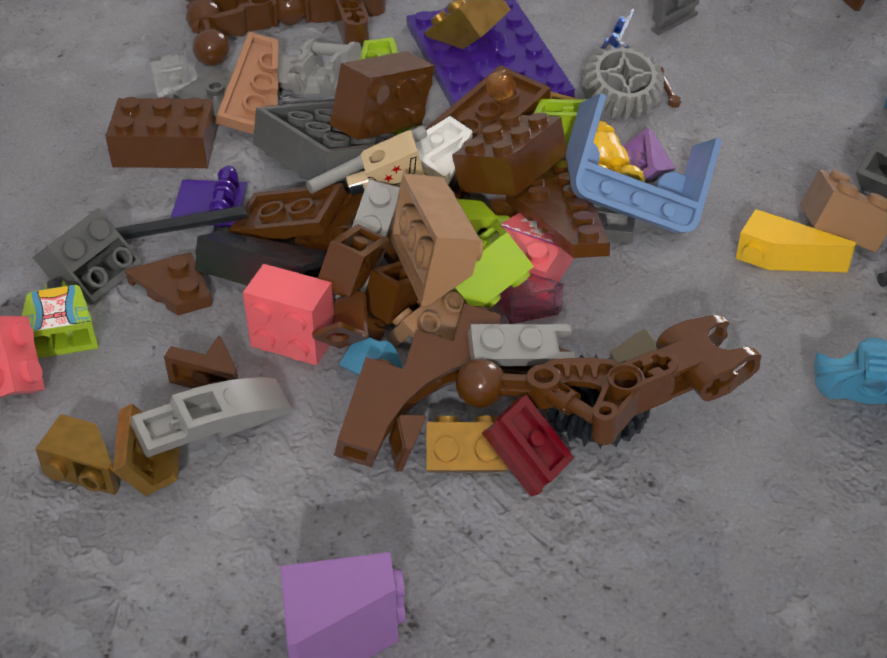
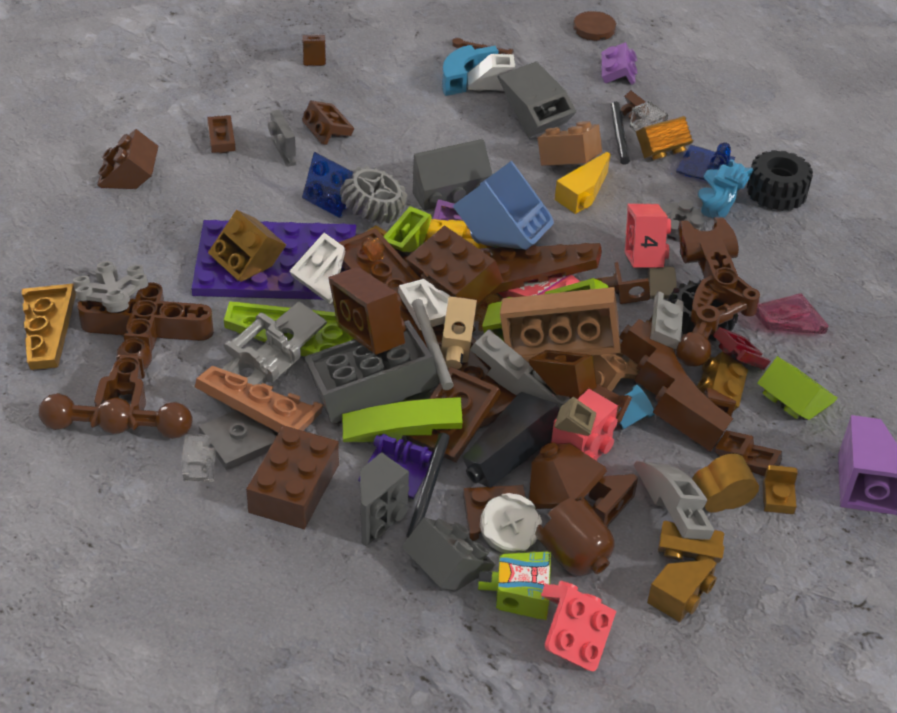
camera: 75 degrees left, 0 degrees up
(121, 341) = (577, 538): none -> reddish brown cylinder
(134, 182) = (382, 496): none -> dark grey slope
(144, 295) = (510, 523): none -> white tile
(212, 313) = (562, 473): none -> reddish brown slope
(259, 179) = (402, 419): none -> lime slope
(262, 468) = (726, 483): none -> pearl gold piece
(267, 275) = (575, 417): none -> dark tan slope
(282, 537) = (779, 489): none -> pearl gold bracket
(343, 496) = (756, 456): none -> reddish brown slope
(462, 68) = (318, 264): none -> white wing
(488, 526) = (795, 389): none -> lime slope
(601, 311) = (623, 288): none -> reddish brown bracket
(650, 502) = (791, 315): none -> clear pink wing
(684, 291) = (646, 235): none -> coral brick
(696, 113) = (449, 172): none -> dark grey slope
(742, 28) = (326, 120): none -> reddish brown bracket
(790, 339) = (683, 211): none -> flat silver plate

